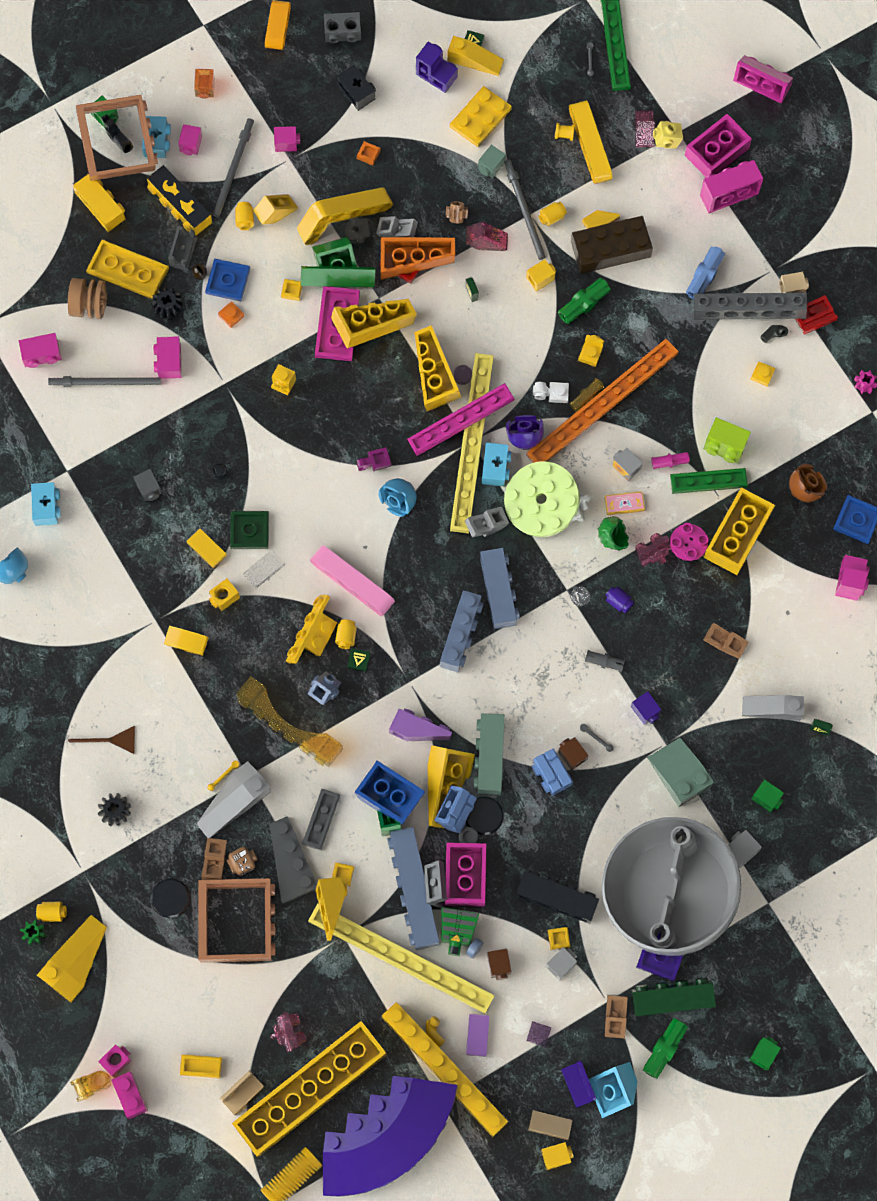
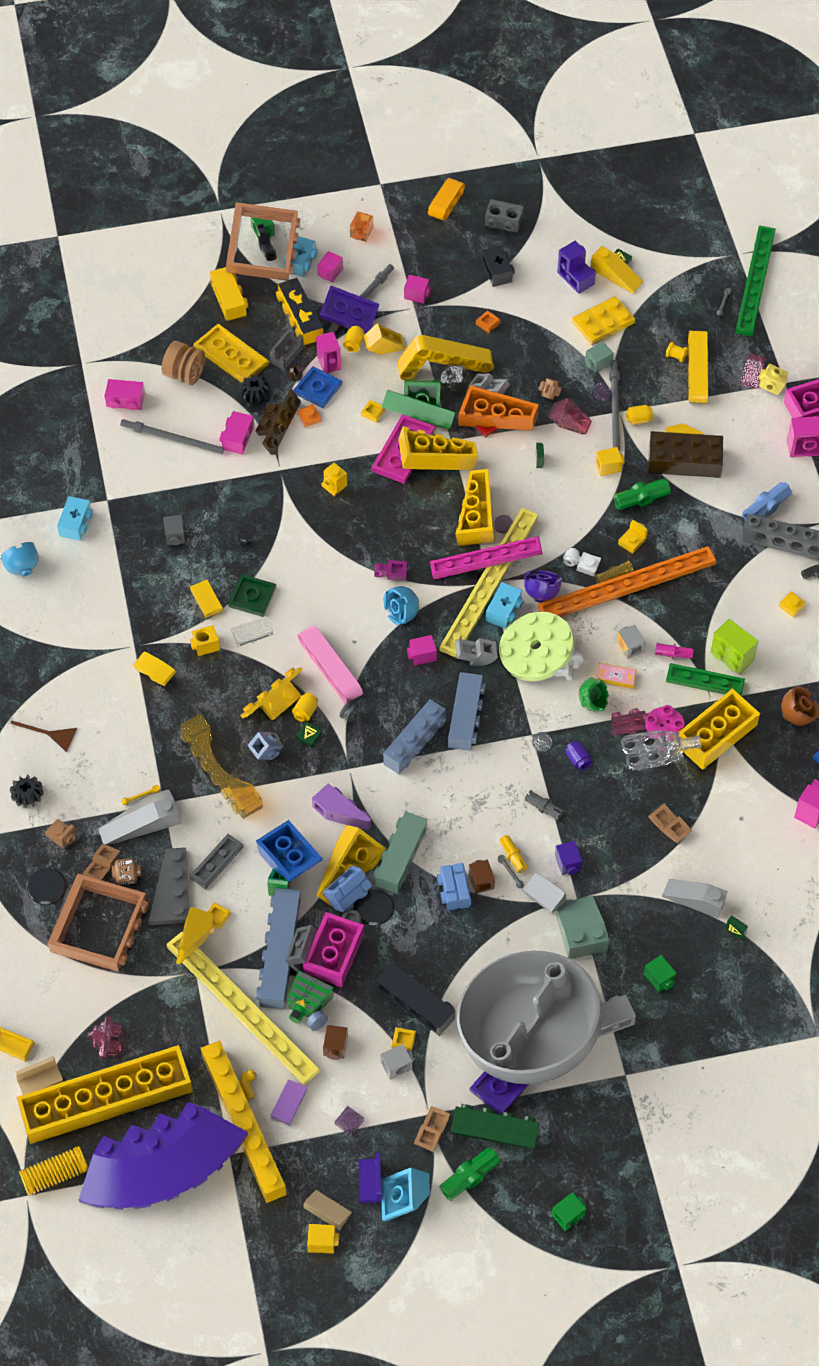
camera: 20 degrees right, 15 degrees down
(164, 840) = (61, 833): none -> medium nougat bracket
(201, 332) = (277, 420): none -> dark brown bracket
(227, 241) = (328, 352): none -> dark pink brick
(228, 185) = (348, 309): none -> dark purple plate
(388, 625) = (348, 712): none -> dark grey bush
(434, 537) = (422, 650): none -> dark pink brick
(507, 199) = (601, 391): none -> clear purple tile
(593, 720) = (513, 853): none -> yellow axle
(636, 751) = (544, 892): none -> slope
(700, 568) = (667, 745): none -> clear piece

